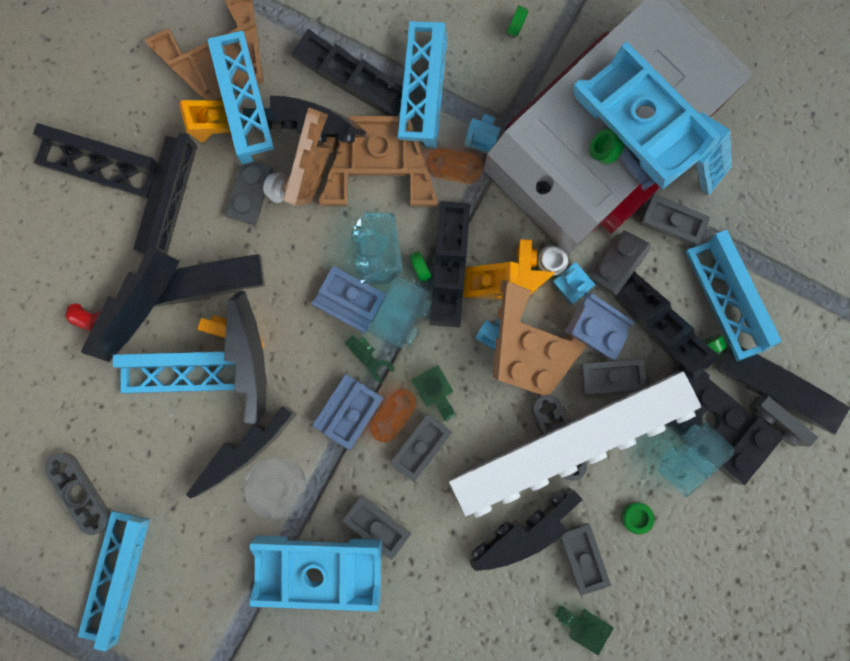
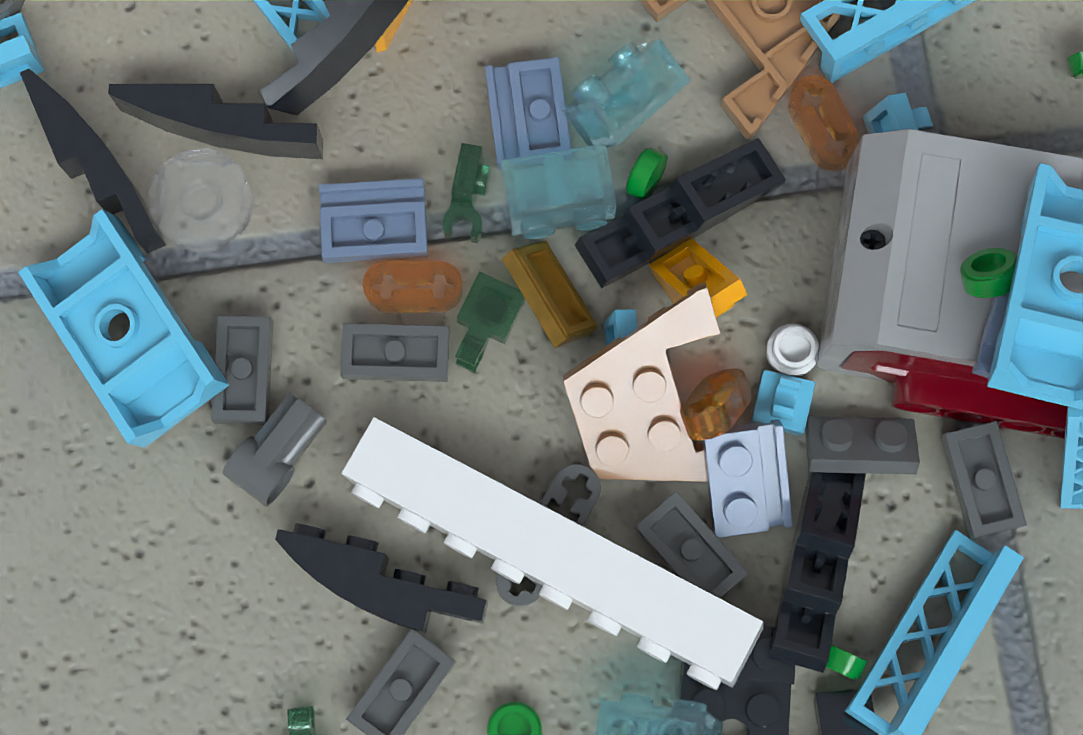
camera: 55 degrees right, 5 degrees down
(206, 530) = (83, 152): none -> black slope
(429, 544) = (266, 462): none -> dark grey piece
(445, 353) = (550, 293): none -> pearl gold tile
(527, 258) = (738, 328): light orange slope -> none
(557, 316) = (715, 404): none -> clear orange beam

